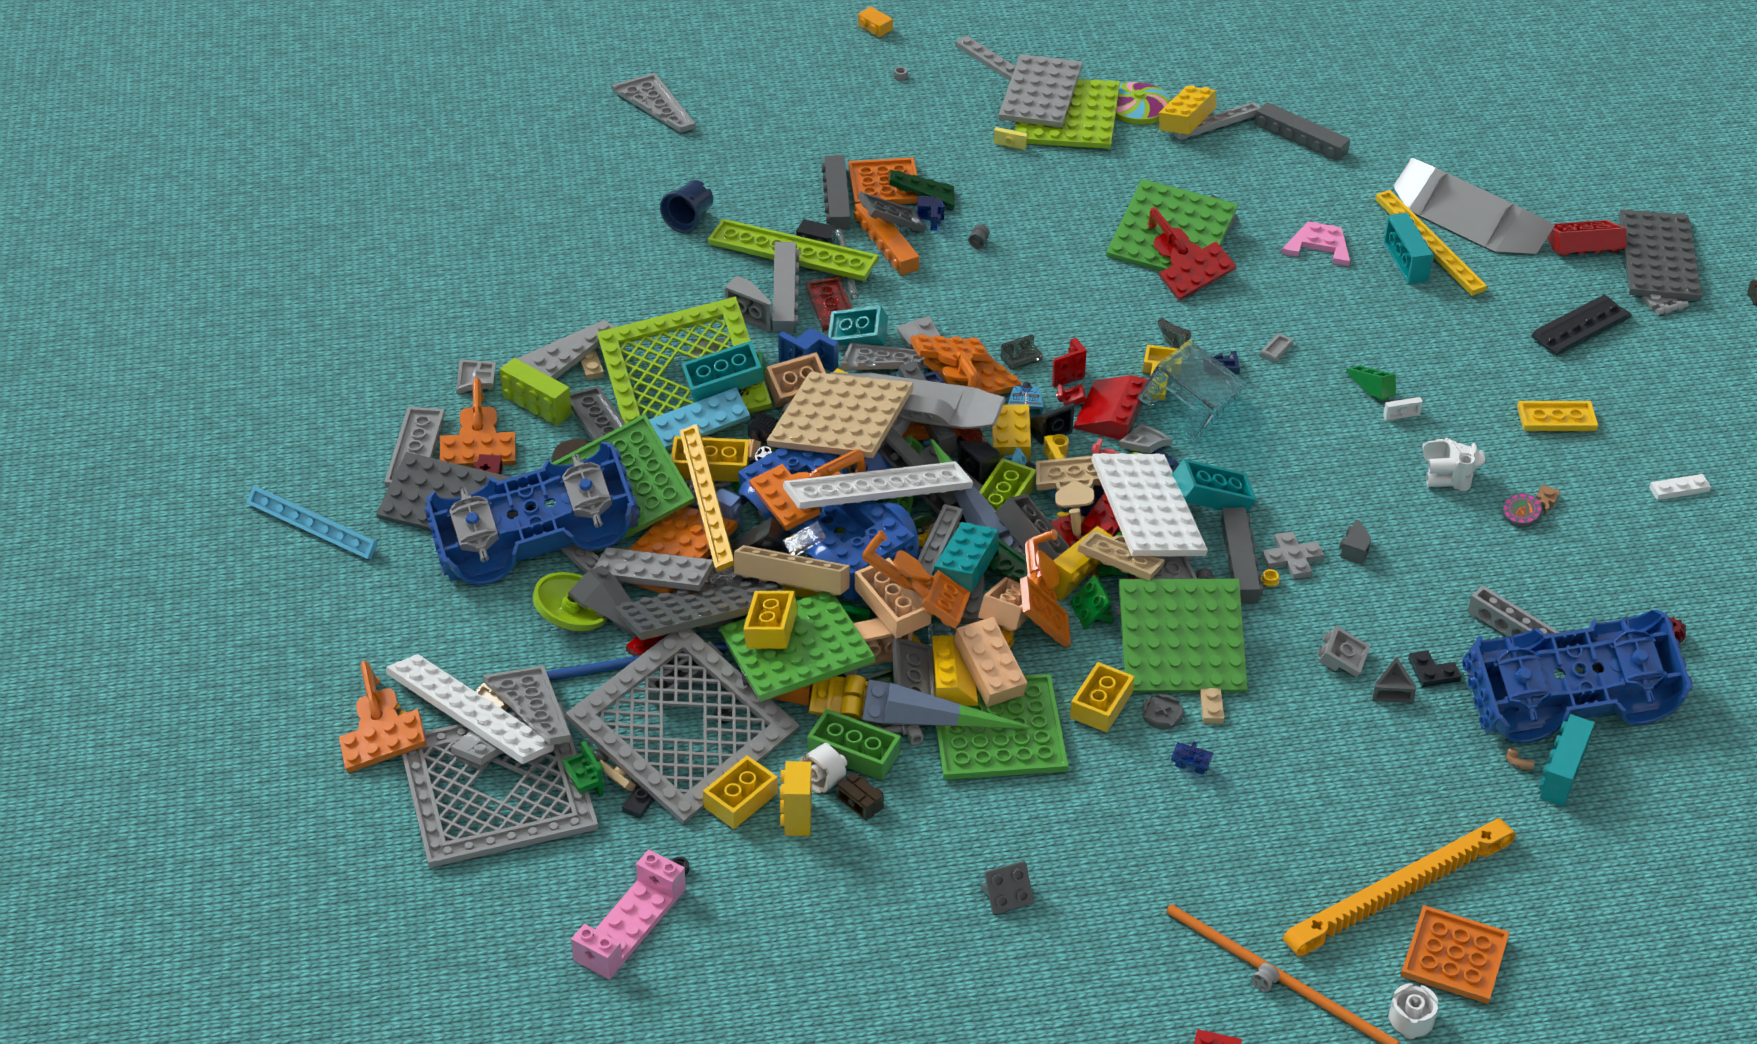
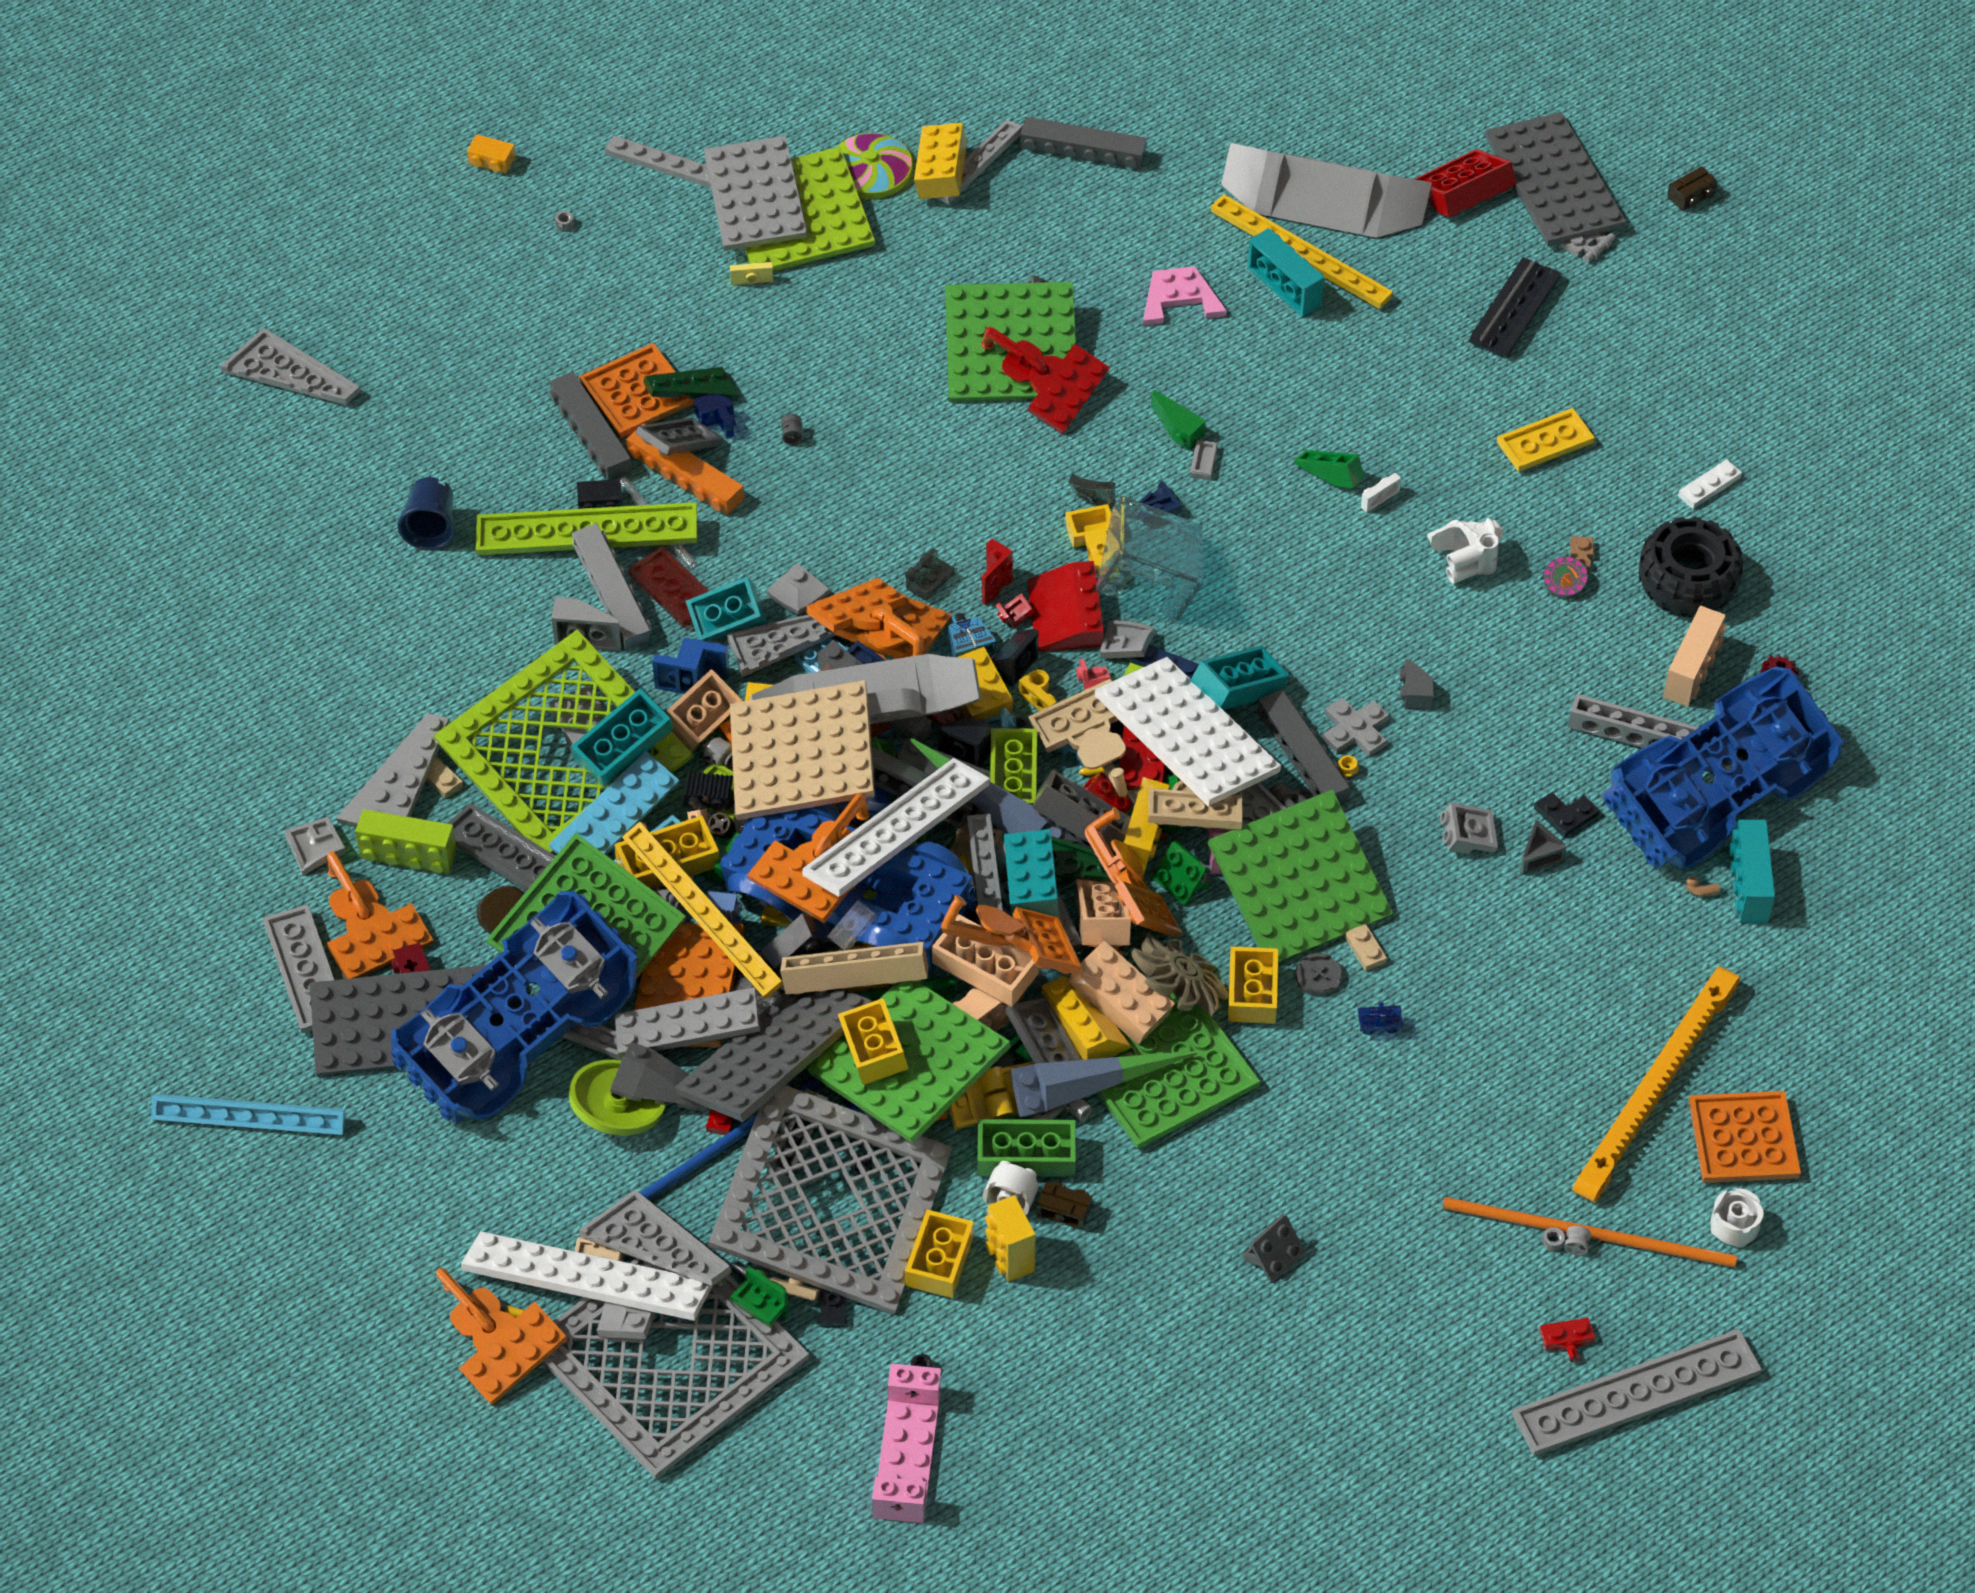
camera: 25 degrees left, 10 degrees up
(1044, 666) = (1180, 974): none -> dark tan piece
(1245, 975) = (1553, 1246): none -> light grey axle
(1271, 317) = (1178, 421): none -> green slope
(1599, 593) = (1695, 656): none -> light nougat brick
(1629, 532) = (1683, 588): none -> black tyre

